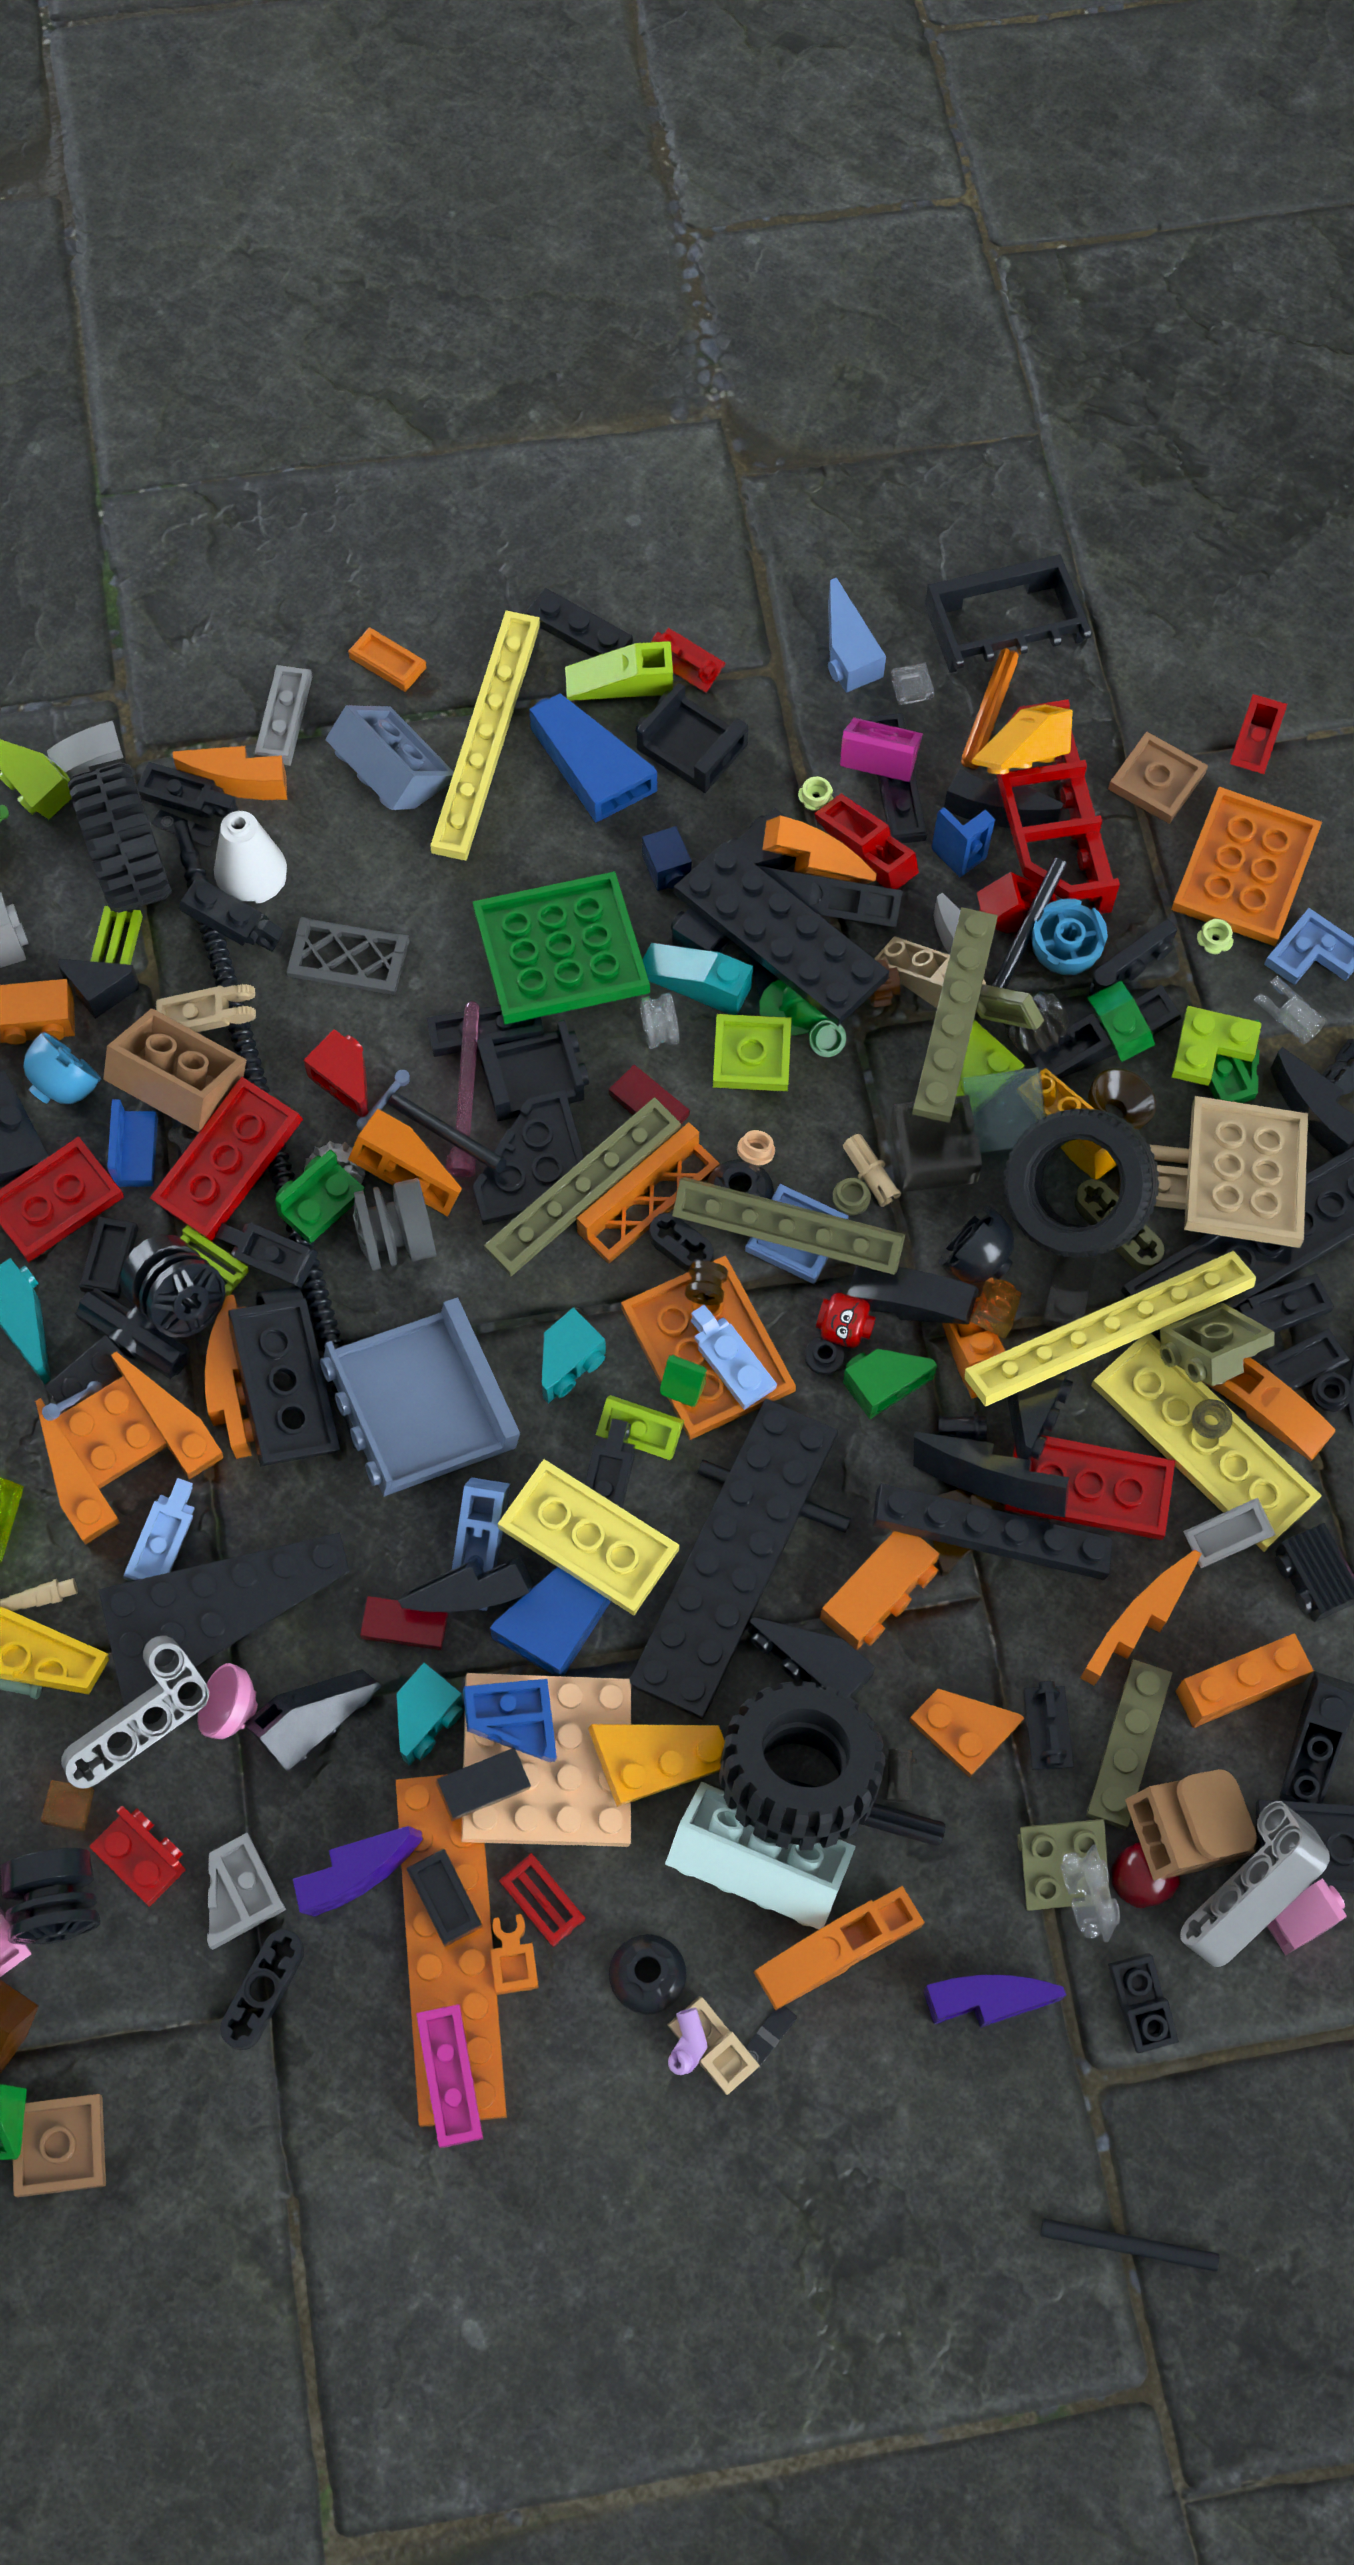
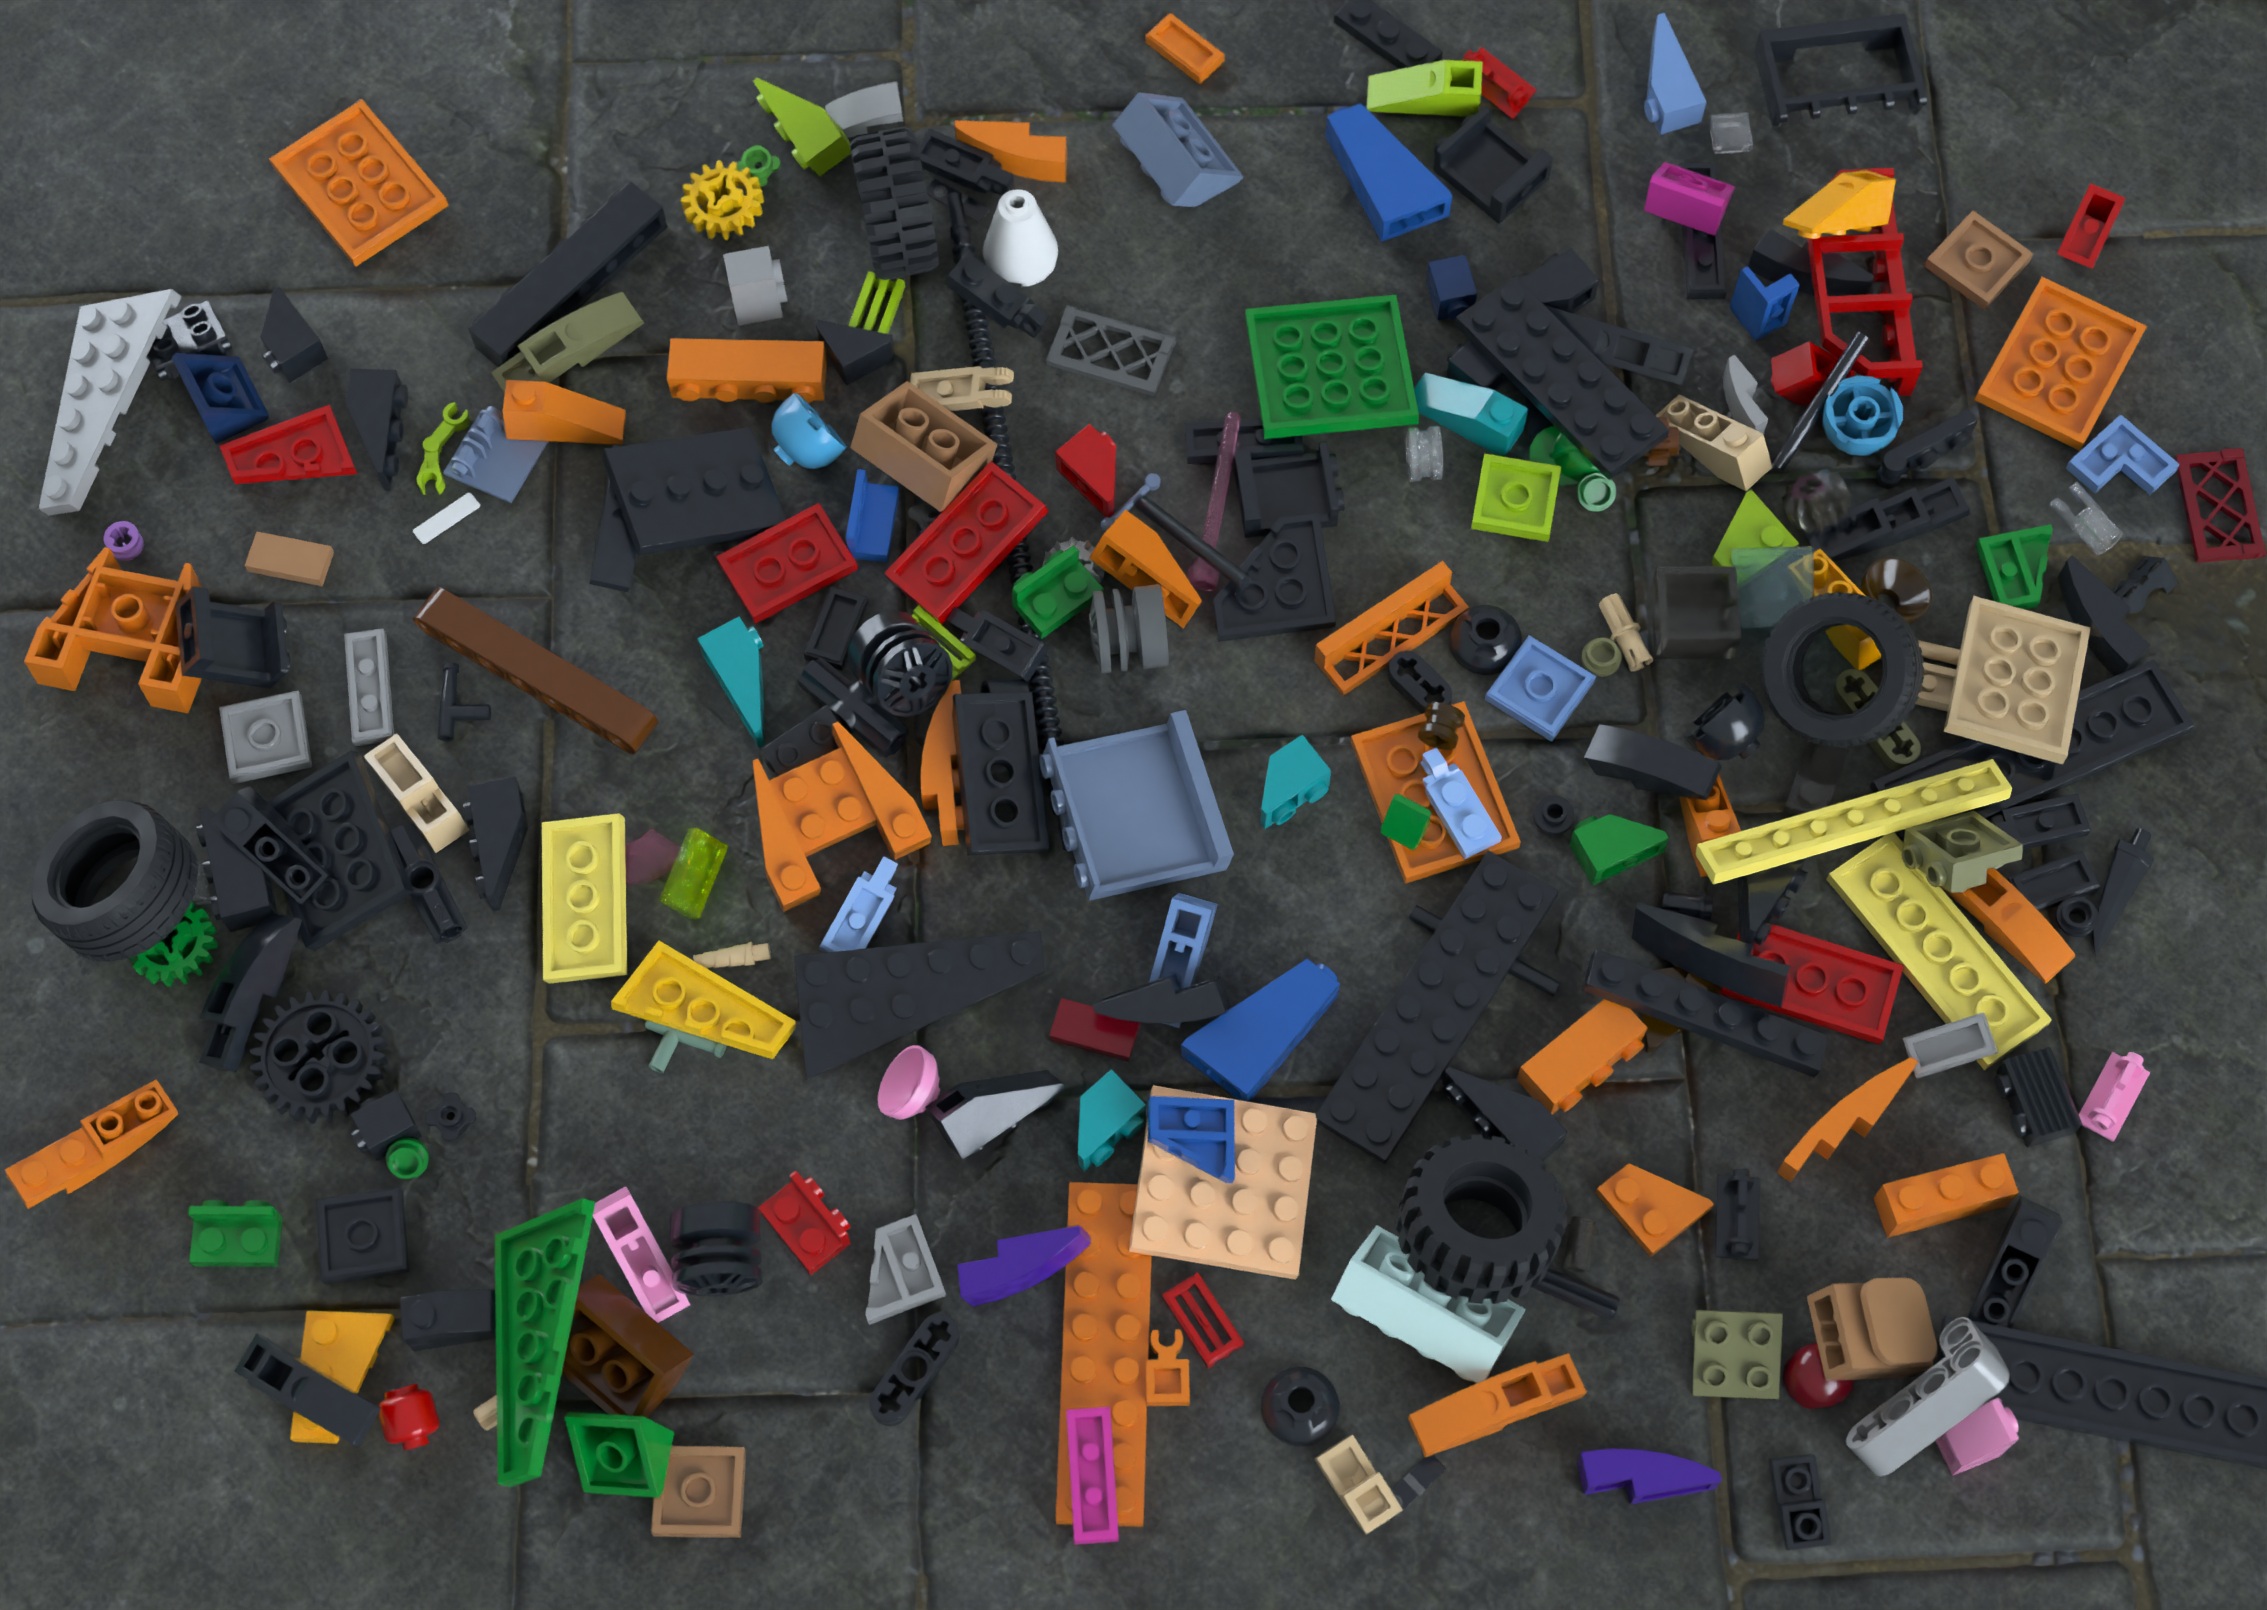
camera: 10 degrees right, 0 degrees up
(53, 1411) = (768, 773): sand blue hinge -> none
(67, 1806) = (740, 1165): clear orange plate -> none
(130, 1717) = (813, 1086): light grey beam -> none
(284, 713) = (1072, 92): light grey tile -> none
(444, 1897) = (1106, 1302): black tile -> none
(483, 1784) = (1158, 1195): black tile -> none
(485, 736) = (1278, 139): light yellow plate -> none
(582, 1187) = (1325, 613): olive plate -> none
(588, 1537) = (1292, 965): light yellow plate -> none
(612, 1463) = (1316, 911): black hinge -> none
(638, 1089) = (1403, 536): dark red tile -> none
(650, 1429) = (1355, 864): lime plate -> none
(655, 1757) = (1332, 1193): light orange wing -> none
(691, 2044) = (1336, 1479): lavender arm -> none
(756, 1148) = (1509, 595): light nougat plate -> none
(789, 1225) = (1533, 677): olive plate -> none
(815, 851) = (1607, 297): orange slope -> none
(818, 786) = (1615, 229): yellowish green plate -> none
(845, 1320) = (1579, 781): red head -> none
(870, 840) = (1663, 293): red slope -> none
(955, 1015) = (1732, 482): olive plate -> none
(990, 706) = (1810, 165): orange axle -> none
(996, 1306) = (1738, 786): clear orange plate -> none
(1008, 1007) = (1786, 479): olive tile -> none
(1096, 1911) = (1764, 1403): clear hinge -> none
(1122, 1020) = (1906, 509): green slope -> none
(1129, 1743) = (1819, 1243): olive plate -> none
(1208, 1034) = (1999, 533): lime plate -> none
(1217, 928) = (2018, 424): yellowish green plate -> none
(1219, 1411) = (1948, 916): clear smoke plate -> none

